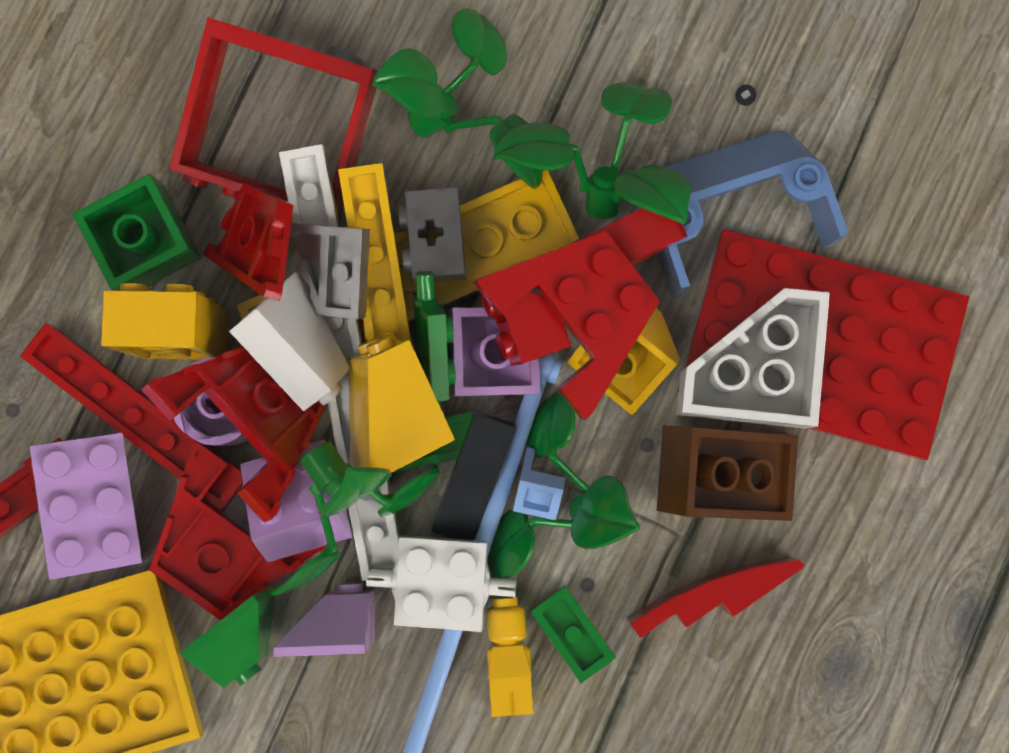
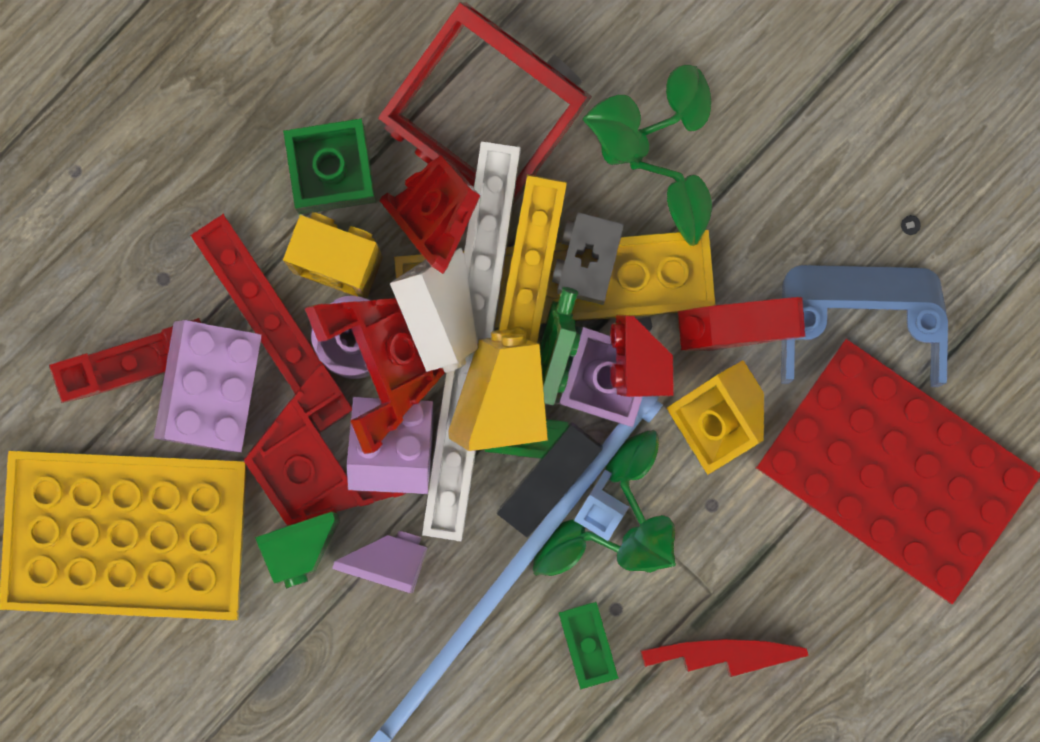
camera: 20 degrees right, 0 degrees up
(334, 267) = (495, 258): flat silver wing -> none
(346, 486) = (436, 436): green plant -> none
(441, 583) = (490, 560): white plate -> none
(508, 659) = (525, 647): yellow piece -> none
(594, 296) = (708, 362): red wing -> none
(651, 188) = (789, 286): green plant -> none
(727, 474) = (772, 554): reddish brown slope -> none
(764, 367) = (832, 470): white brick -> none

